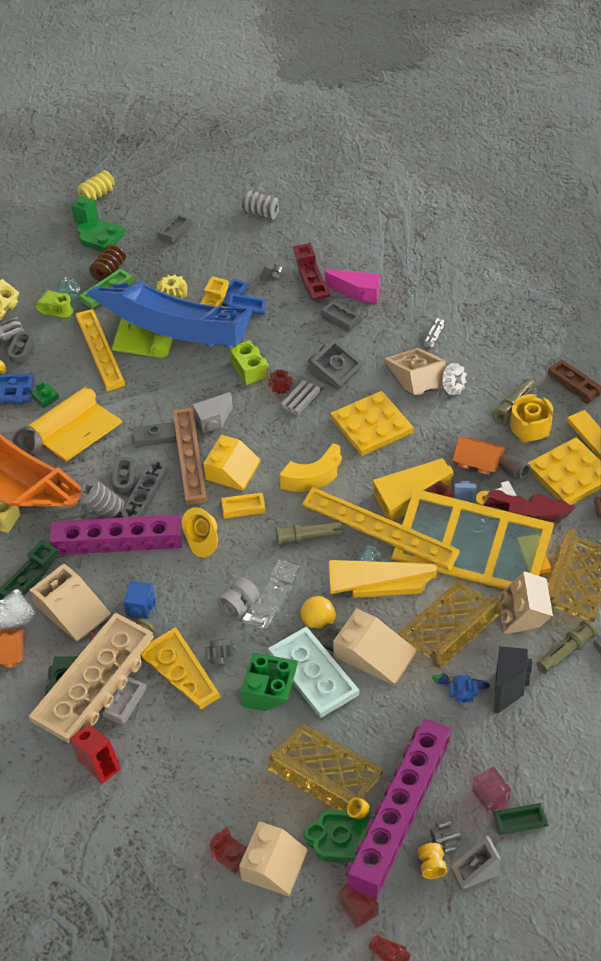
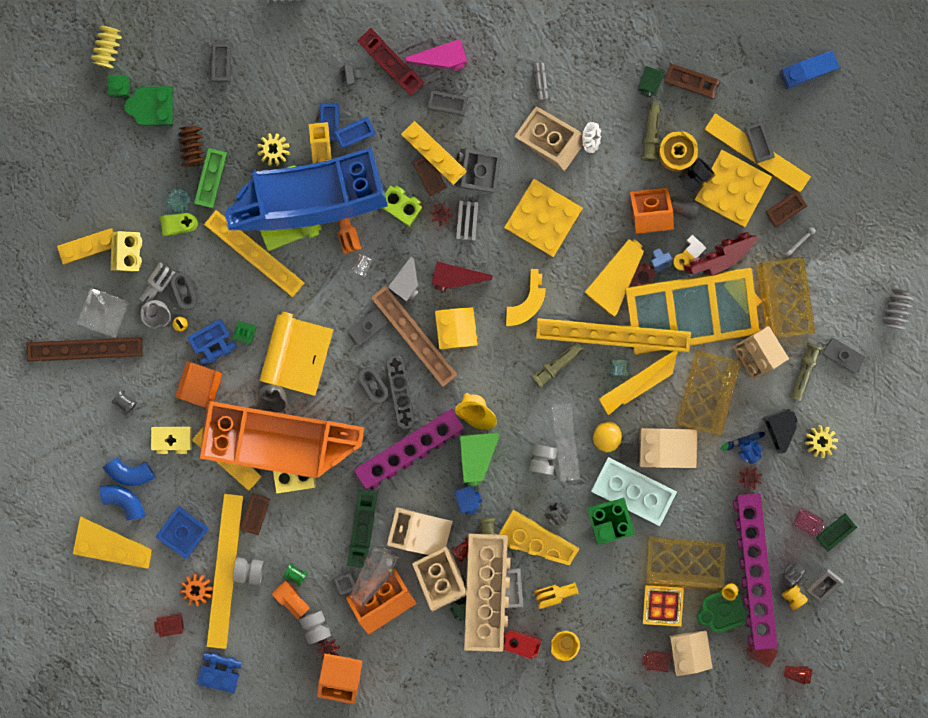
camera: 30 degrees left, 40 degrees up
(58, 639) = (440, 578): none -> tan slope
(100, 498) = (379, 428): light grey piece -> none
(139, 780) = (565, 645): none -> yellow hair
(163, 726) = (553, 594): none -> yellow arm
(176, 561) = (476, 456): none -> bright green slope
(183, 388) = (362, 265): none -> clear bush
(187, 363) = (348, 237): none -> orange arm
(243, 505) = (488, 362): yellow tile -> none
(261, 428) = (452, 277): none -> dark red slope
(273, 795) = (663, 605): none -> tile
(289, 354) = (429, 176): none -> reddish brown plate
(304, 335) = (434, 153): none -> yellow plate
(449, 714) = (745, 480): none -> clear red gear
(535, 365) = (650, 81): none -> dark green brick
(540, 440) = (697, 175): none -> black wheel
(549, 717) = (817, 447): none -> light yellow gear

